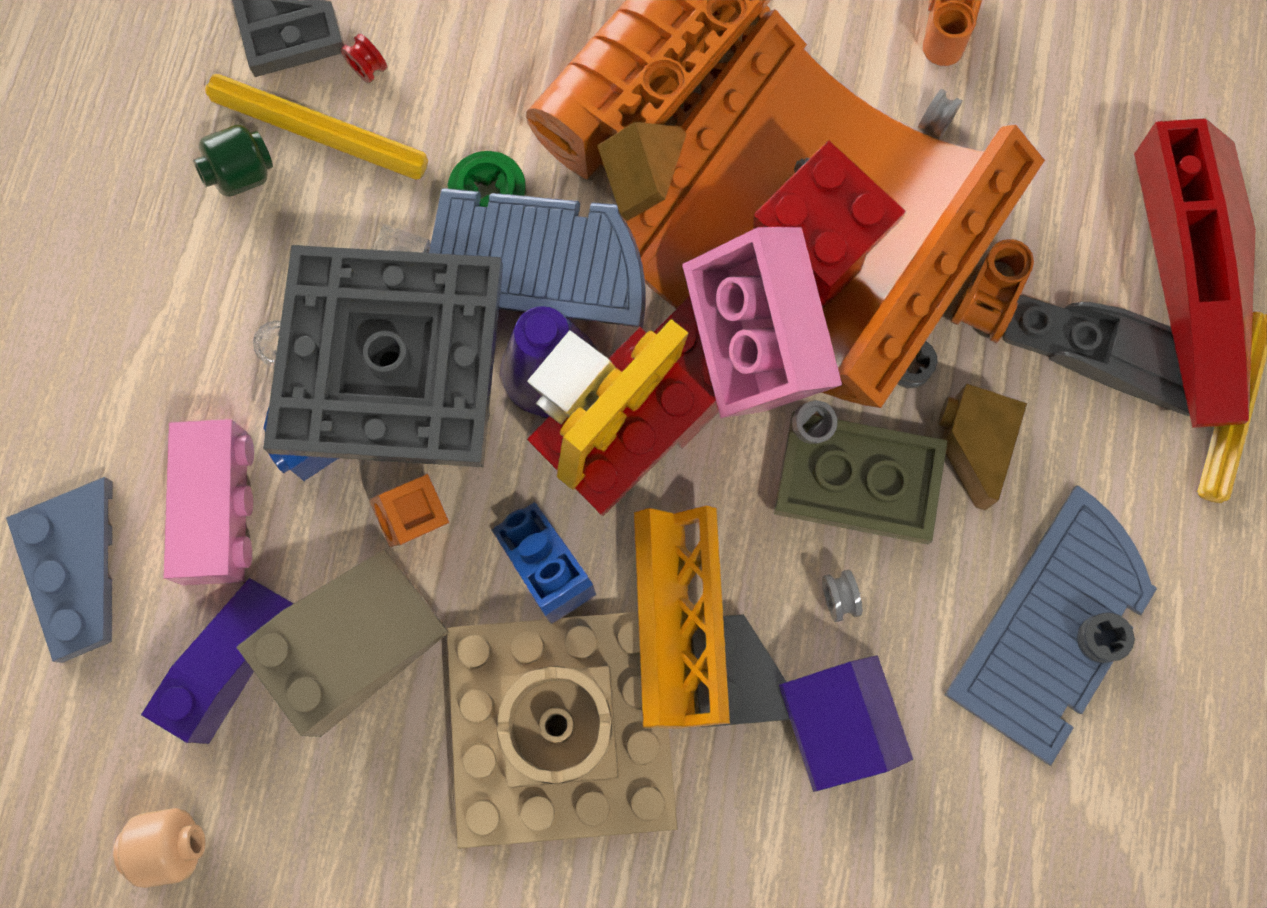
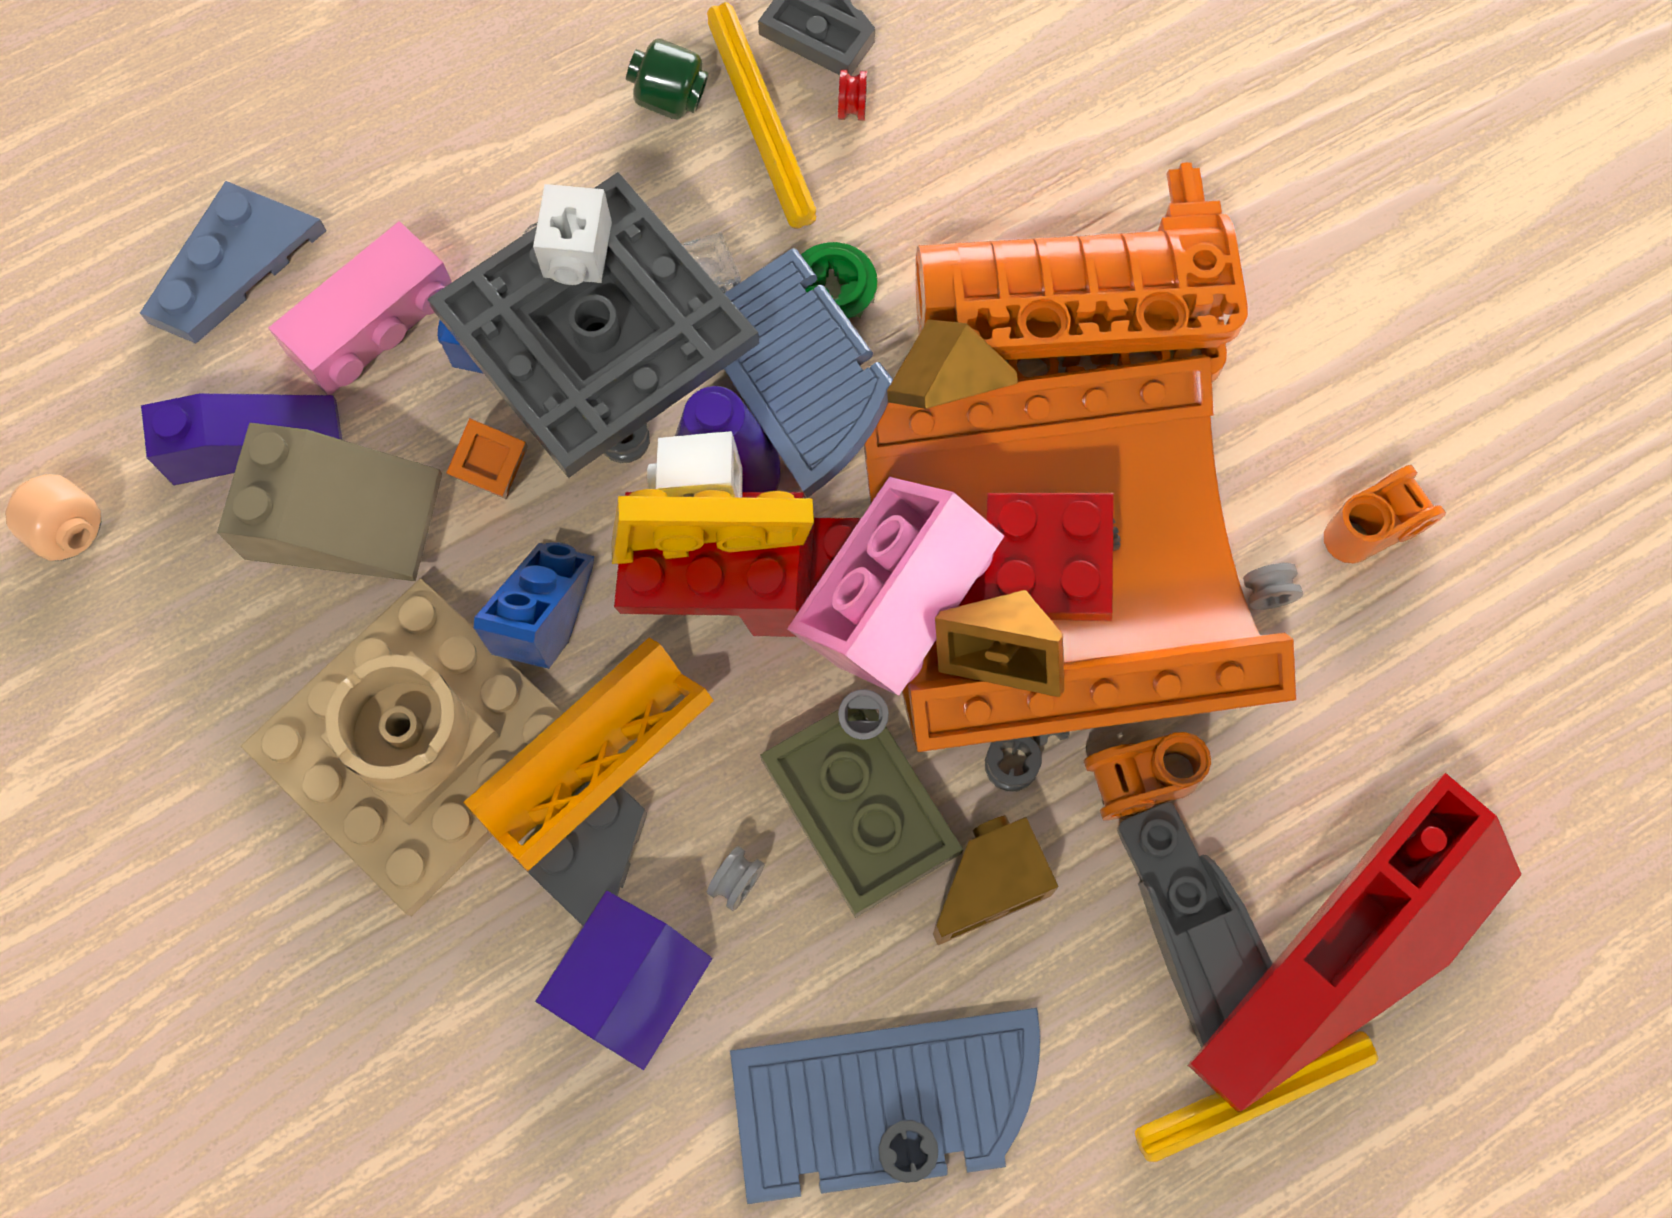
camera: 45 degrees right, 5 degrees down
(308, 294) = (572, 234): none -> white brick
(872, 289) = (1002, 643): none -> pearl gold slope

